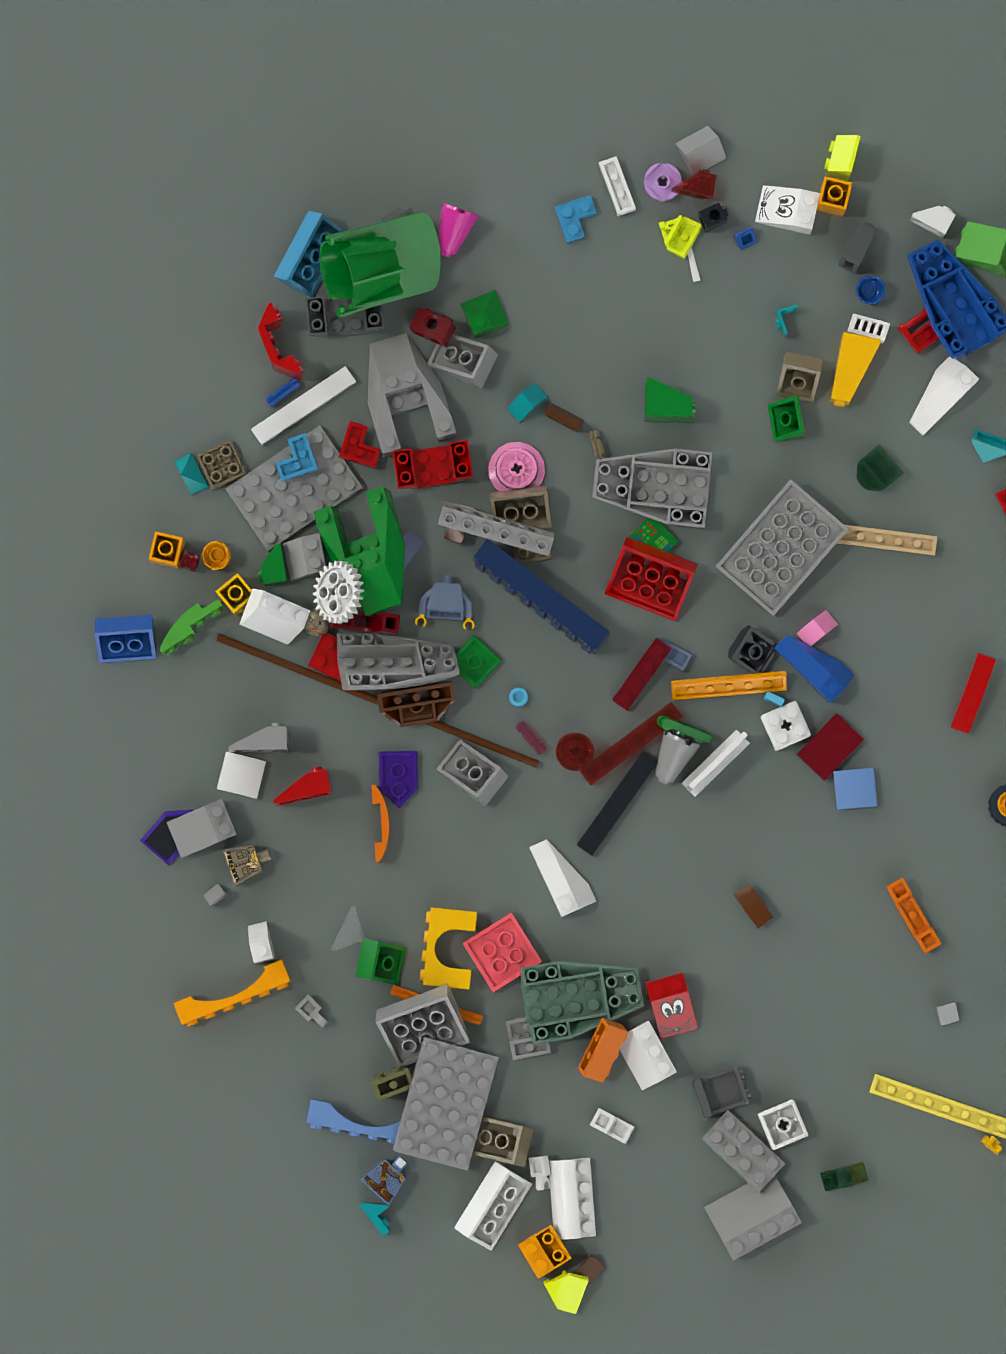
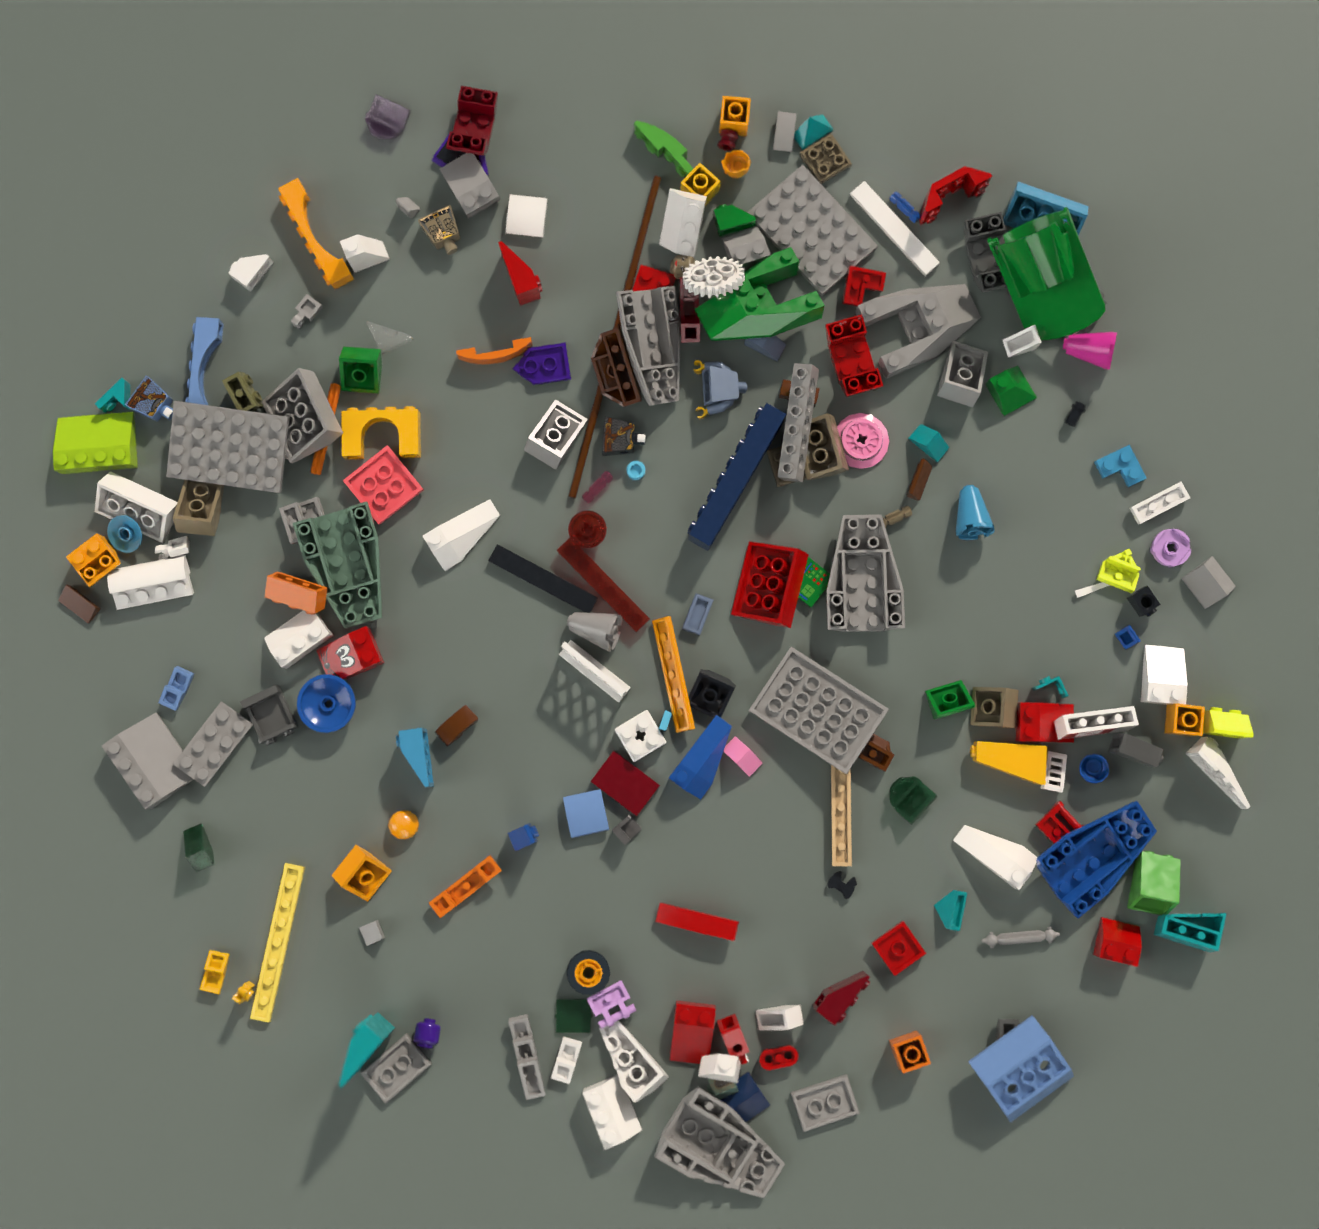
camera: 80 degrees right, 0 degrees up
(119, 906) = (386, 118): none -> clear purple slope
(125, 638) = (644, 89): blue slope -> none
(138, 817) = (473, 121): none -> dark red slope
(188, 502) = (784, 131): none -> light grey slope
(261, 1065) = (250, 270): none -> white slope
(267, 740) = (564, 239): light grey slope -> none
(300, 463) = (838, 230): dark azure plate -> none
(420, 1241) = (95, 443): none -> lime slope
(438, 296) = (1022, 342): none -> white slope
(440, 334) = (984, 347): dark red brick -> none
(476, 661) = (665, 424): green tile -> none
(483, 708) = (620, 437): none -> torso
(517, 254) = (1075, 413): none -> black pin
(525, 1224) = (118, 534): none -> dark azure dish
(567, 1290) = (59, 587): neon yellow slope -> none
(606, 370) = (972, 515): none -> dark azure cone
(612, 1126) = (226, 613): white slope -> none
(641, 674) = (673, 587): dark red plate -> none
(667, 404) = (946, 576): green slope -> none
(682, 1183) = (177, 688): none -> medium blue slope
(683, 729) = (623, 634): green plate -> none
(697, 185) = (1173, 581): clear red slope -> none
(731, 1036) = (313, 699): none -> blue dish
(773, 947) = (415, 748): none -> dark azure slope
(794, 1129) = (231, 775): white brick -> none
(820, 330) = (1036, 721): none -> red slope
(827, 282) = (1095, 722): none -> white brick
(830, 495) = (877, 753): none -> reddish brown slope
(845, 970) = (403, 824): none -> light orange hair
(871, 851) = (523, 836): none -> blue slope
(875, 751) = (626, 829): none -> flat silver panel
(879, 174) = (1215, 766): none -> white wedge
(888, 1017) = (361, 873): none -> light orange slope
(934, 219) = (1176, 825): white slope -> none
(958, 545) = (846, 889): none -> black piece
(968, 1173) = (214, 972): none -> yellow slope

